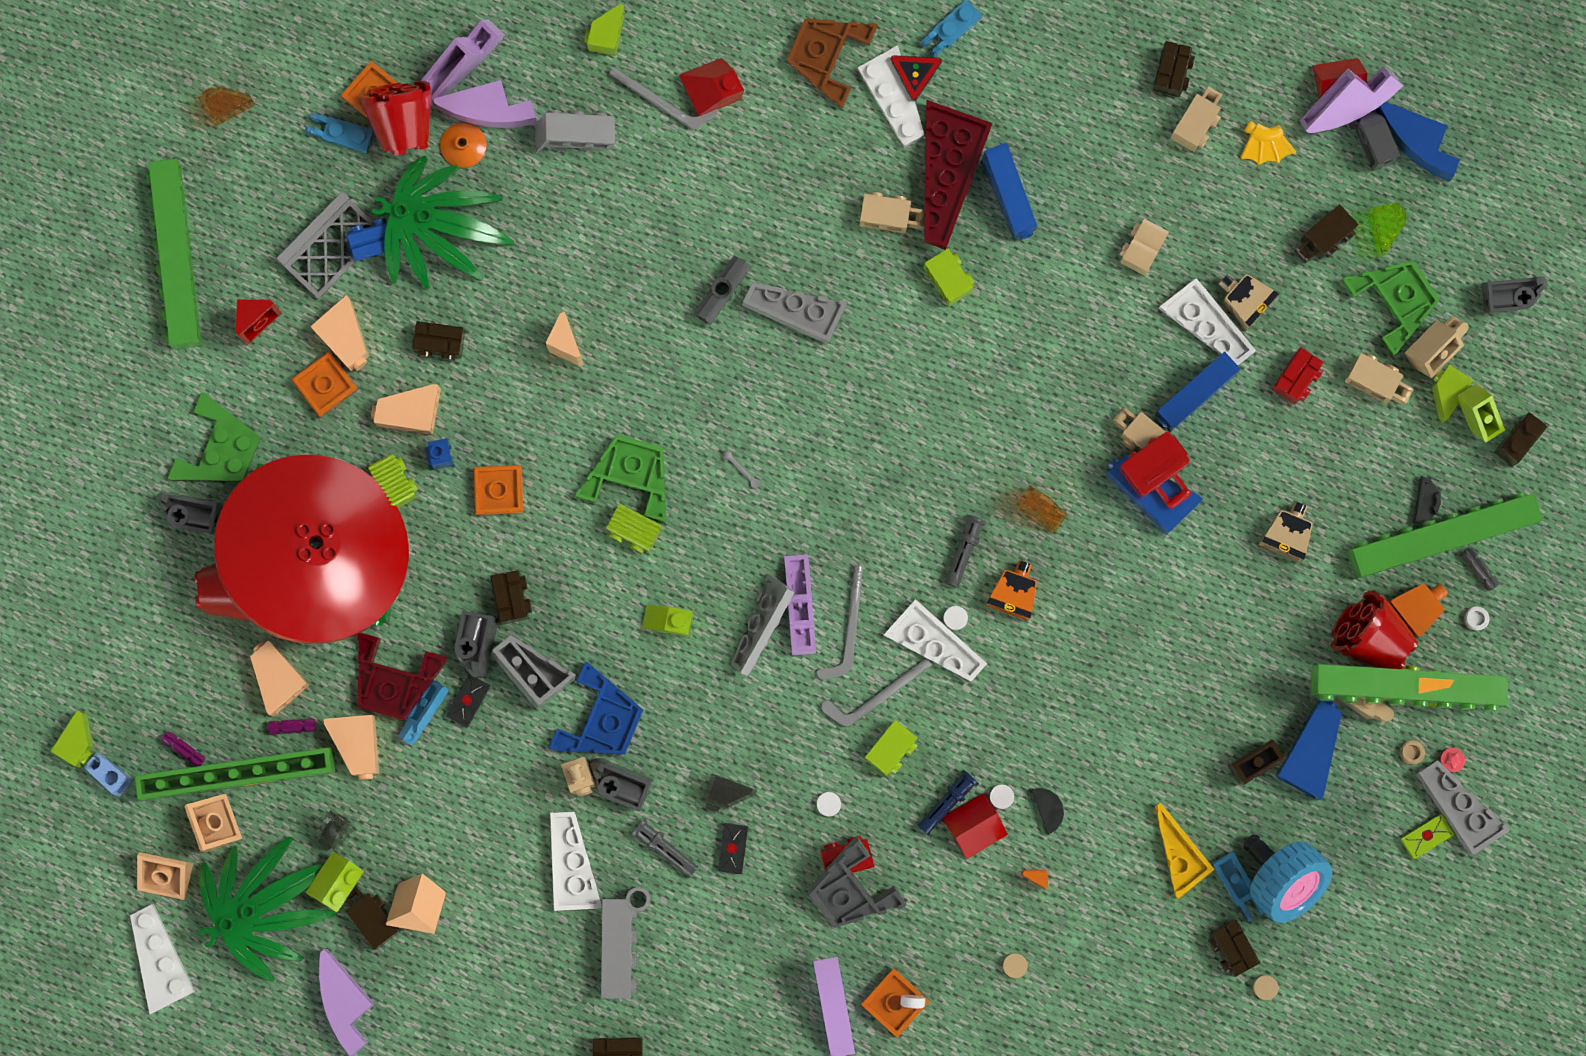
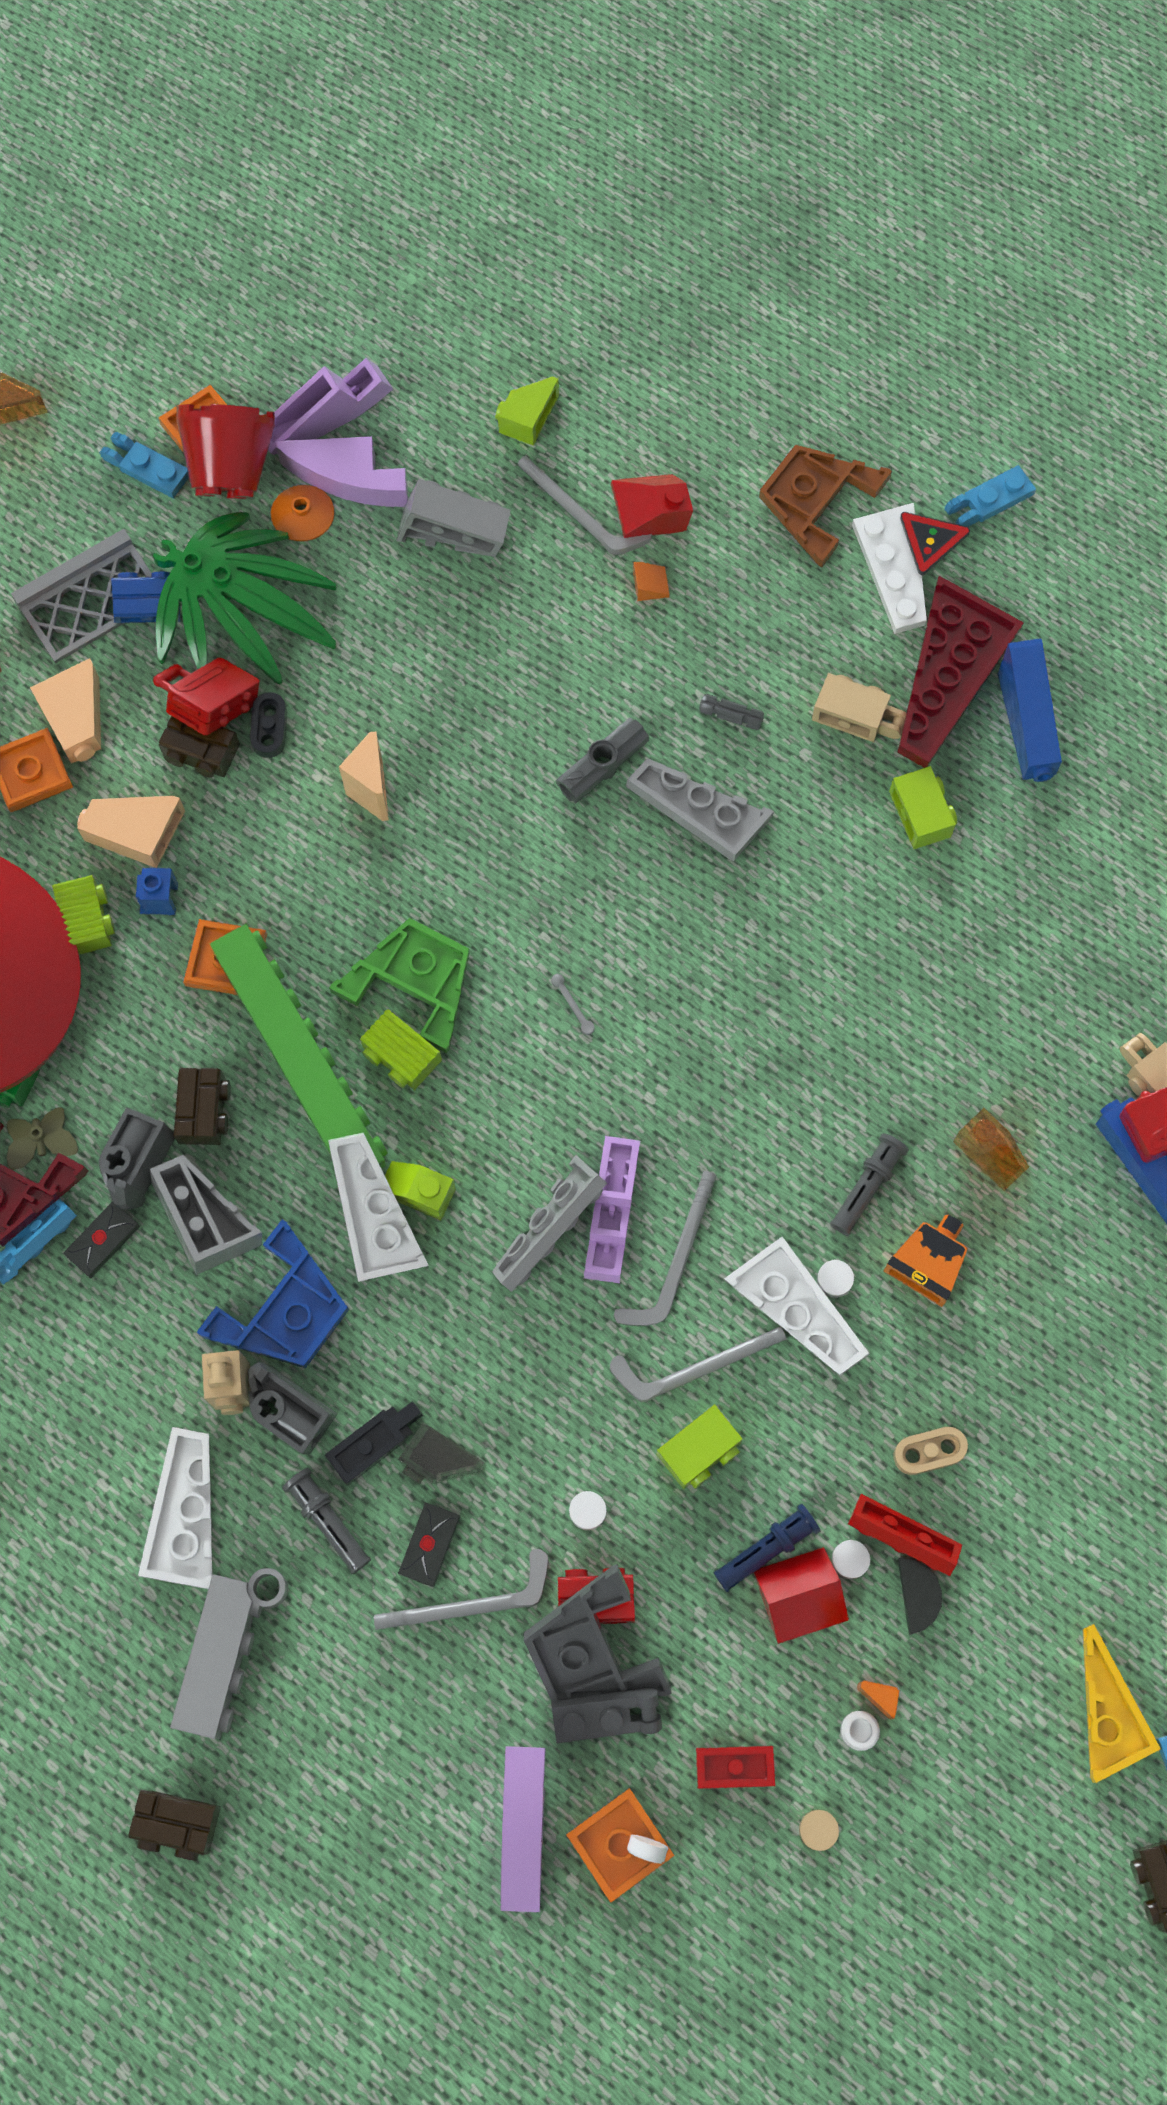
camera: 15 degrees right, 10 degrees down
(405, 640) = (39, 1134): none -> olive piece
(438, 304) = (208, 695): none -> red piece
(483, 315) = (268, 727): none -> black plate
(567, 548) = (291, 1038): none -> bright green brick
(646, 648) = (374, 1221): none -> white wing
(681, 792) = (372, 1442): none -> black hinge
(724, 146) = (650, 581): none -> orange slope
(802, 233) = (731, 711): none -> dark grey axle
(803, 867) = (527, 1598): none -> light grey piece
(869, 927) = (606, 1715): none -> dark grey plate
(956, 940) = (735, 1767): none -> red plate
(1028, 900) = (860, 1730): none -> white tile
(1032, 774) = (905, 1535): none -> red plate
(1038, 716) = (929, 1450): none -> tan plate

